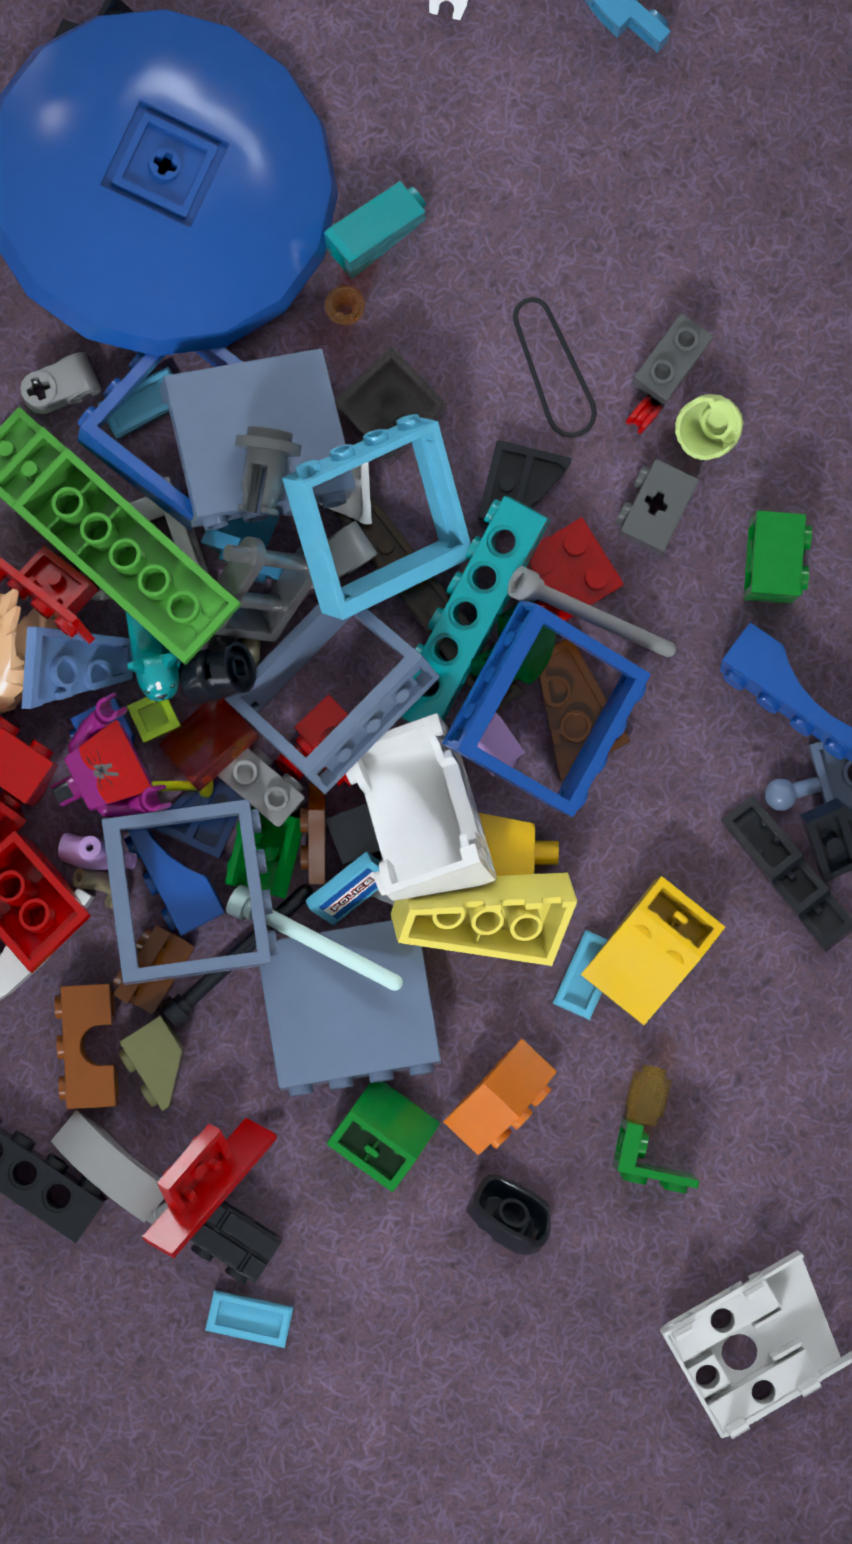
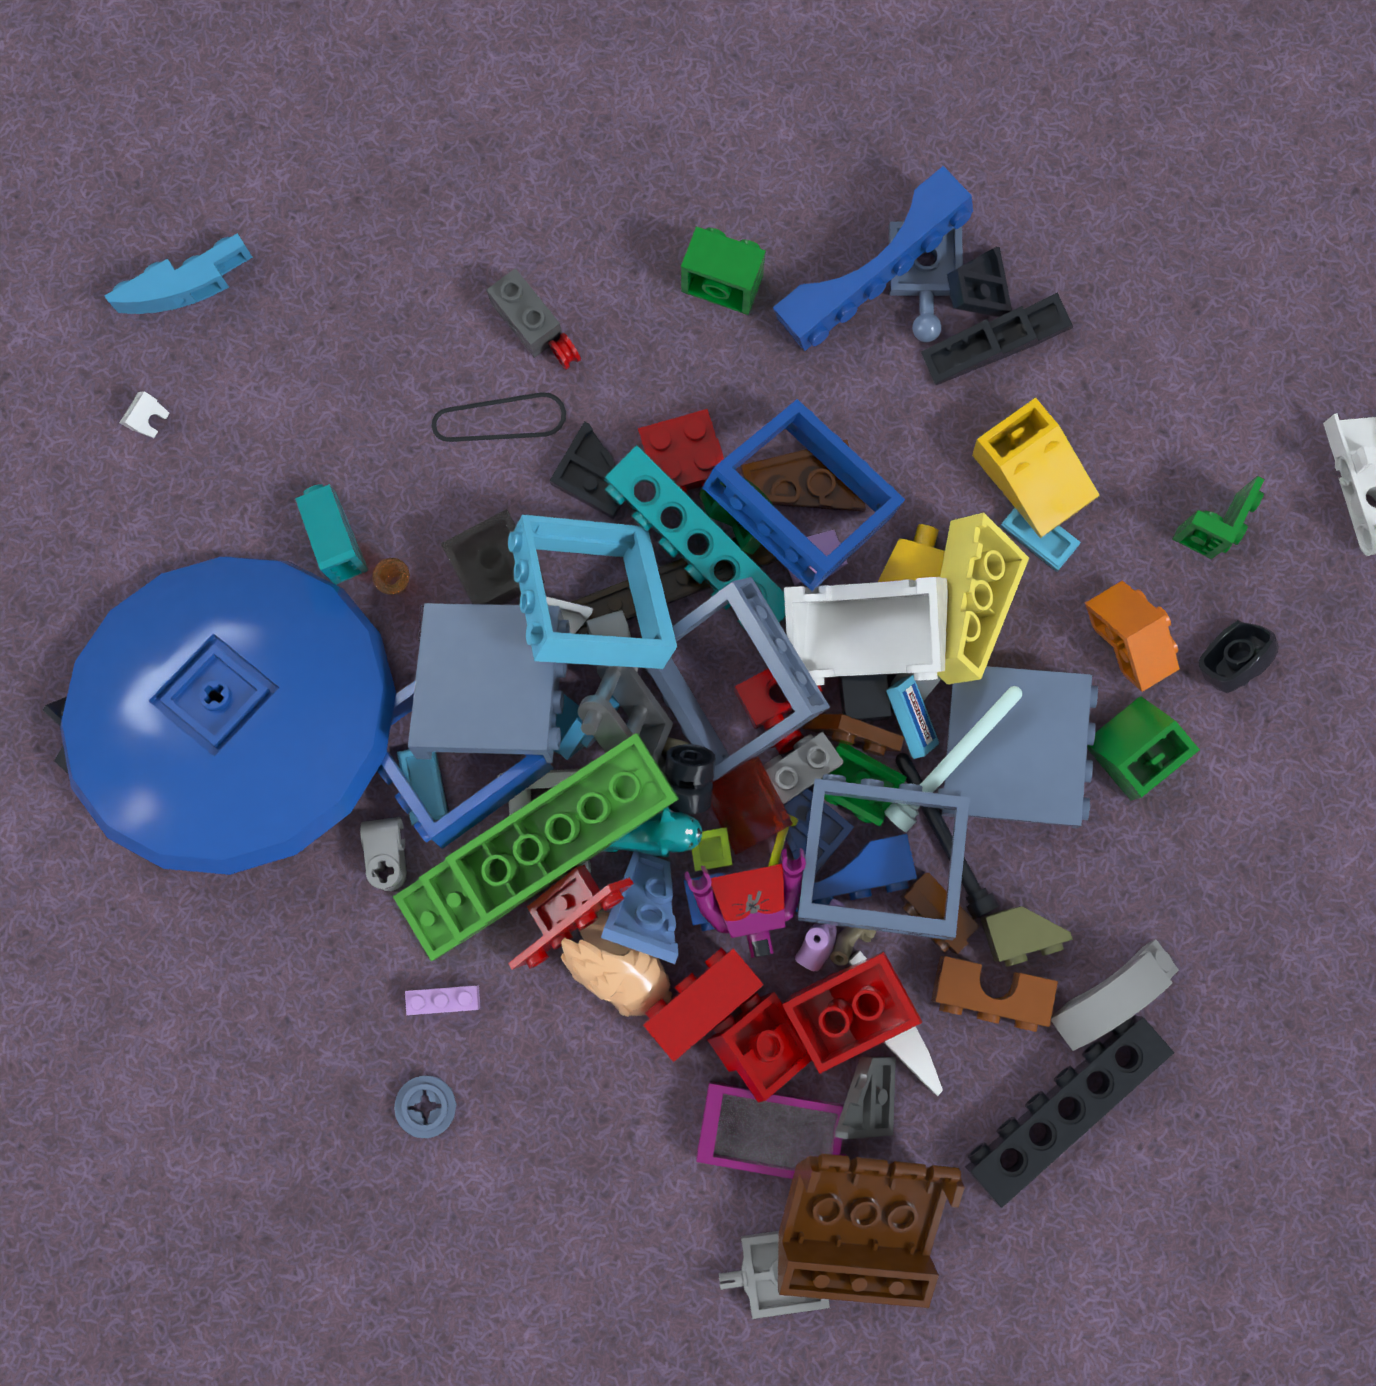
camera: 75 degrees left, 5 degrees down
(204, 1180) = (1149, 918): red bracket -> none
(237, 1242) = (1202, 907): black brick -> none
(249, 1318) = (1274, 914): medium azure tile -> none
(268, 450) = (505, 667): dark grey piece -> none
(528, 586) = (692, 477): light grey piece -> none
(647, 1095) = (1161, 509): clear yellow brick -> none
(675, 491) = (639, 343): dark grey brick -> none
(709, 426) = (592, 296): yellowish green hair -> none

